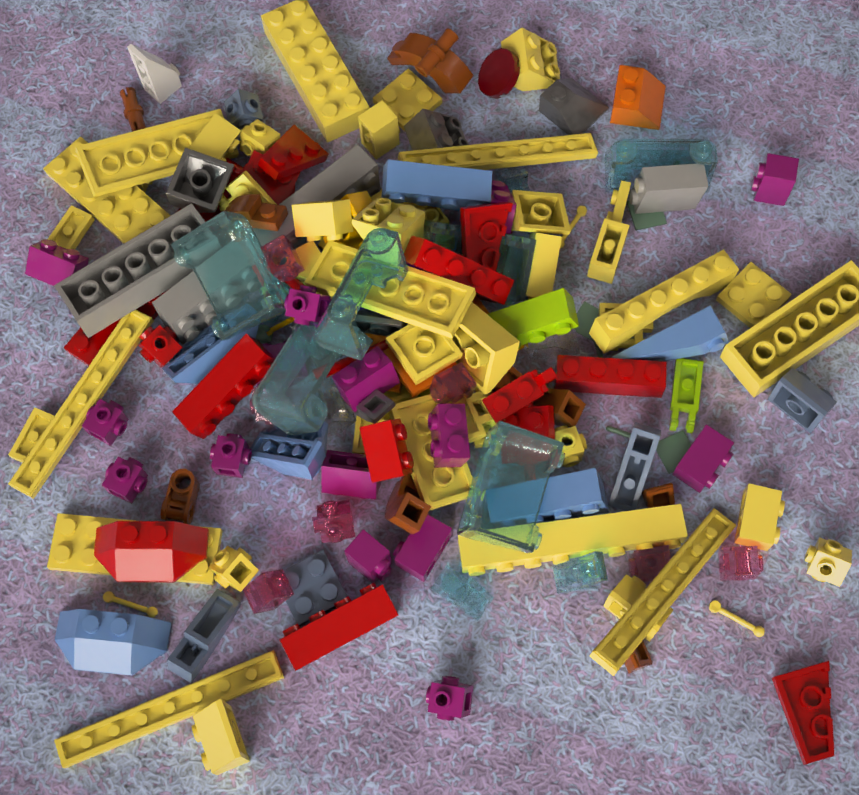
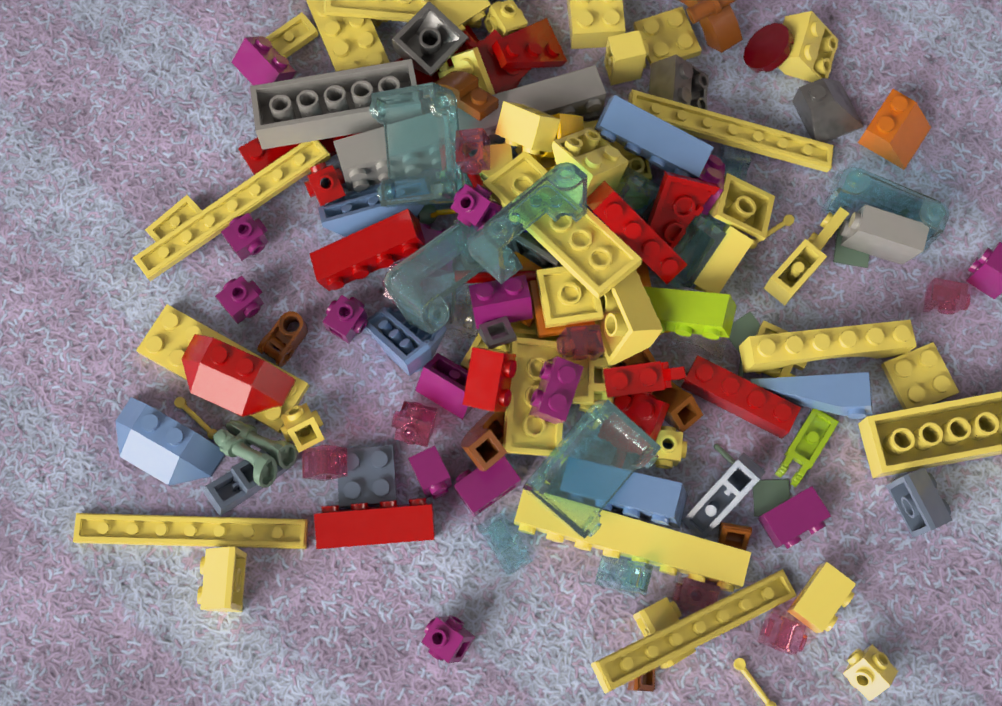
camera: 20 degrees right, 5 degrees up
(178, 607) = (237, 442): none -> sand green piece
(743, 219) = (946, 296): none -> clear pink brick

